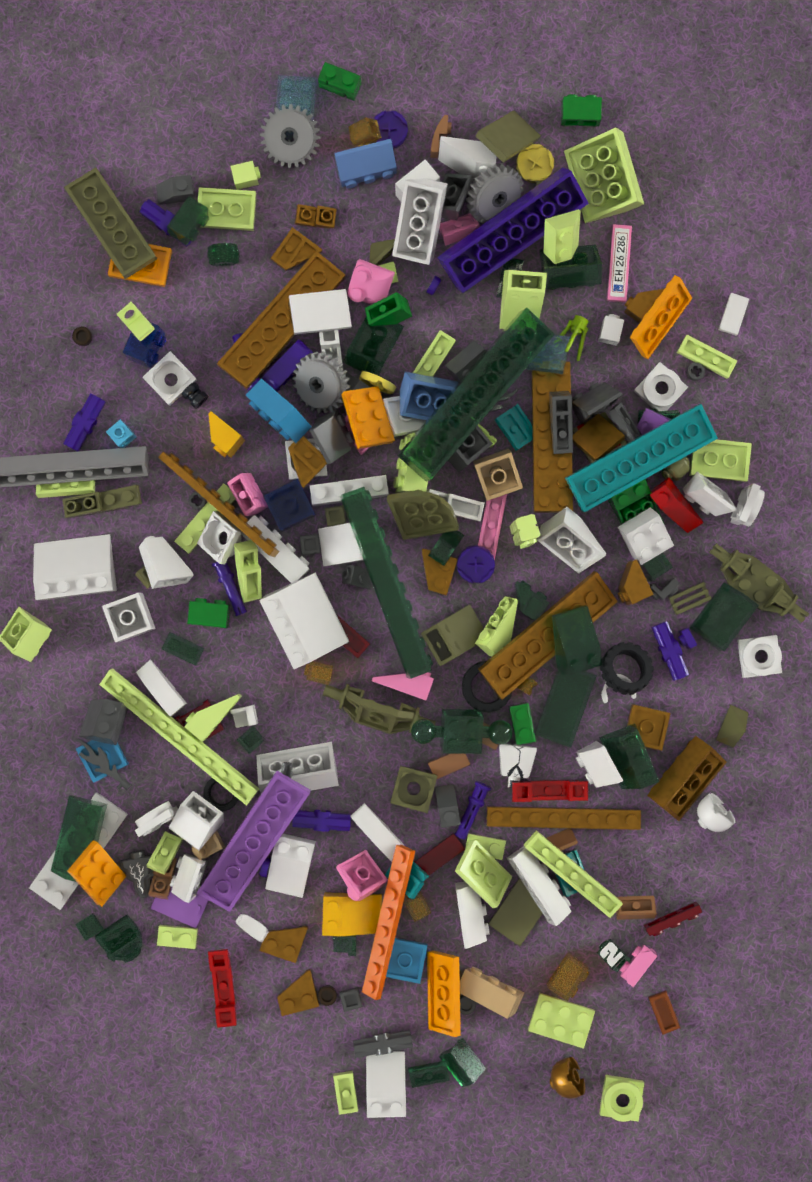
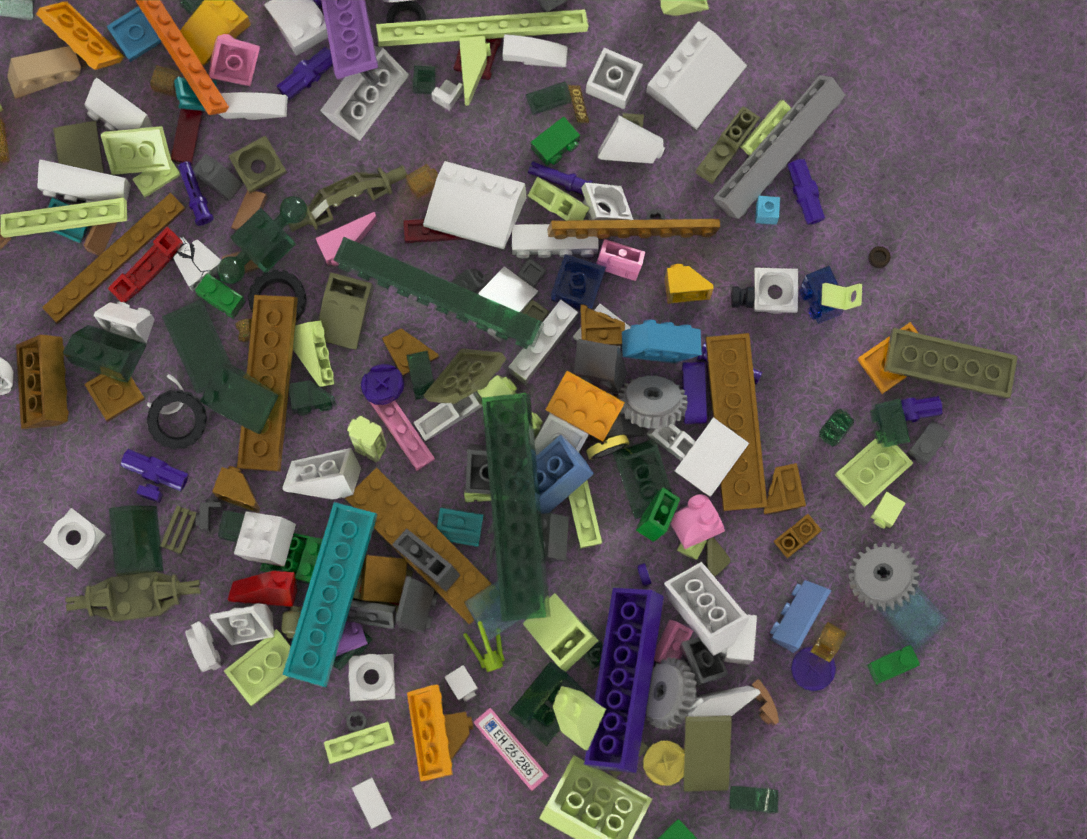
camera: 135 degrees right, 10 degrees down
(168, 625) = (578, 103): none -> clear yellow sticker
(191, 534) = (633, 191): yellowish green plate -> none
(467, 1005) = (52, 42): dark grey tile -> none
(498, 474) = (436, 471): tan slope -> none
(505, 88) = (753, 799): none -> clear green slope
(733, 726) = (43, 461): olive slope -> none

